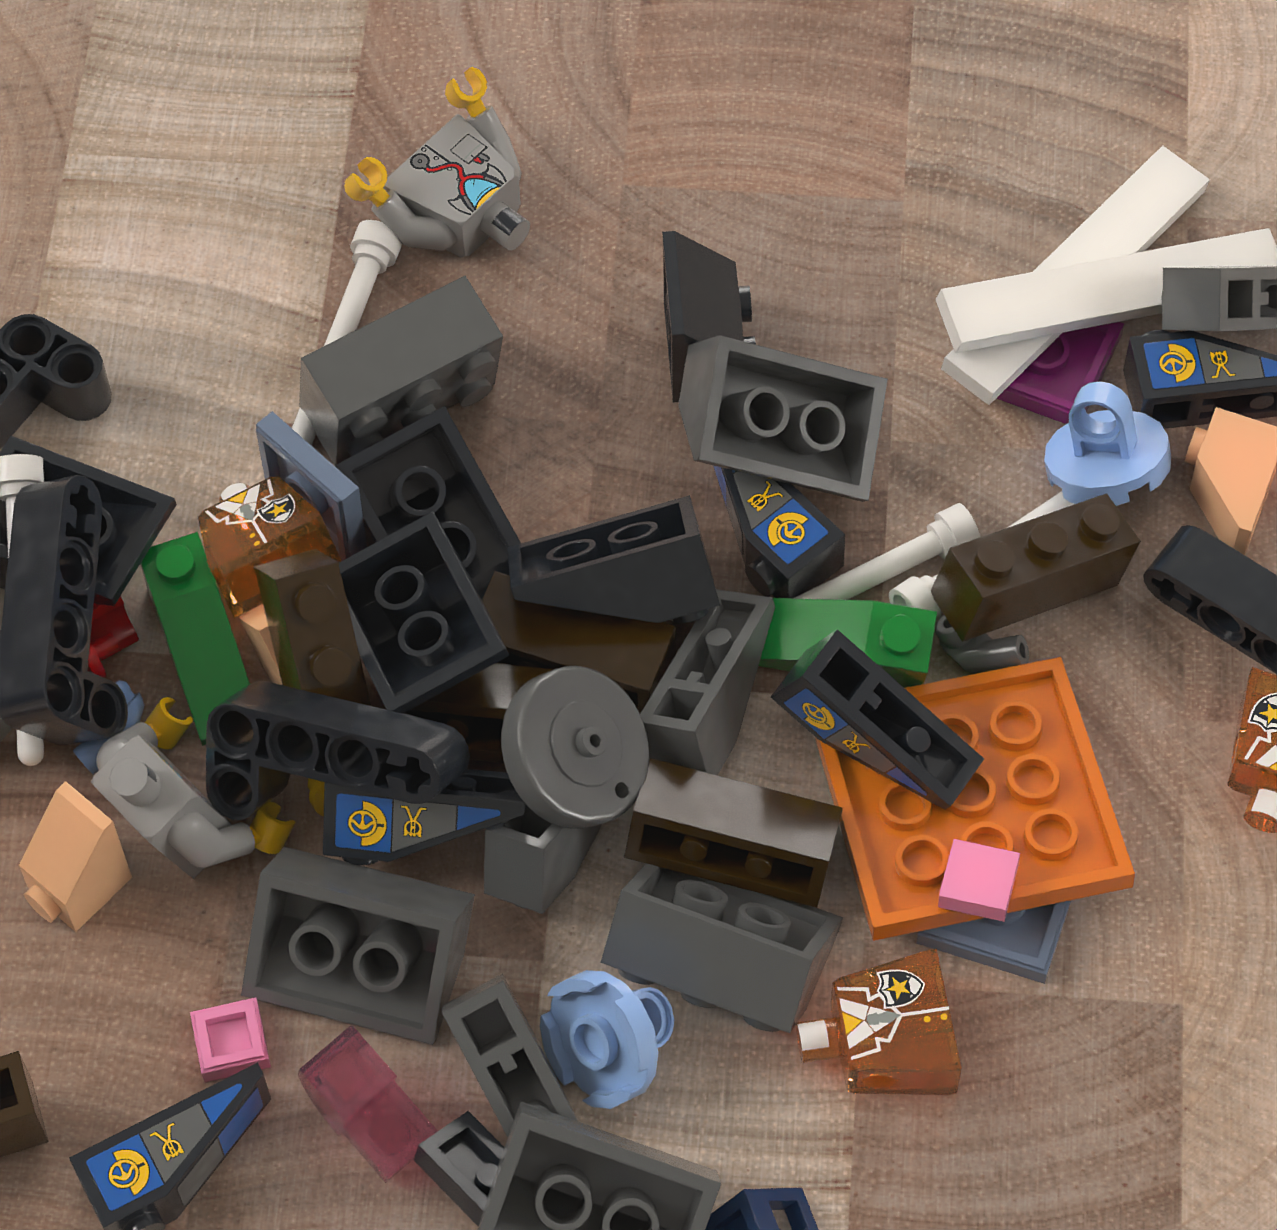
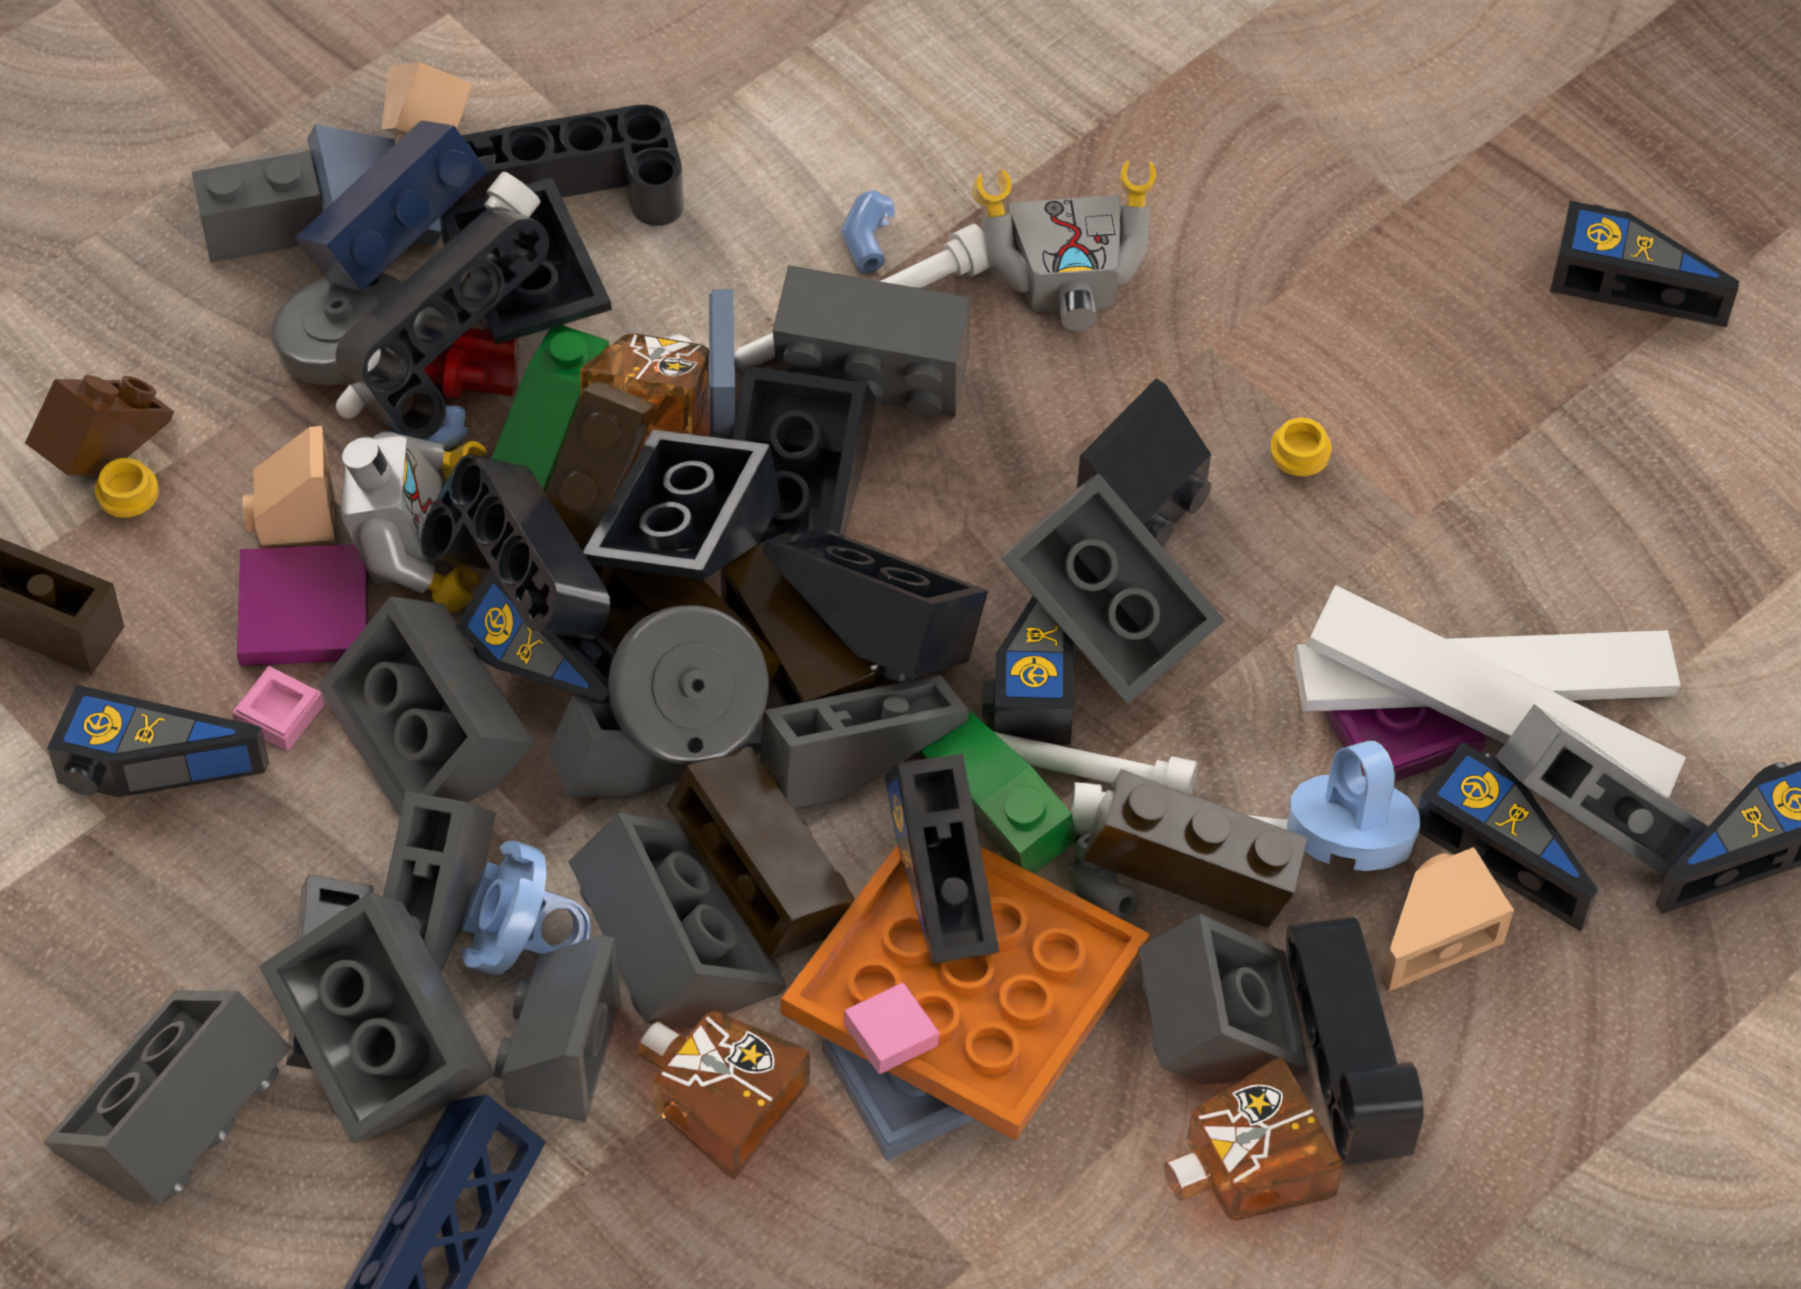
camera: 40 degrees right, 5 degrees down
(159, 941) = (300, 604): none -> magenta tile
(270, 291) = (859, 228): none -> medium blue arm
(364, 1103) = (308, 815): clear pink brick -> none
(737, 1090) = (561, 1030): none -> dark grey slope
(775, 209) = (1300, 447): none -> yellow plate
(1158, 669) = (1219, 1003): none -> dark grey slope

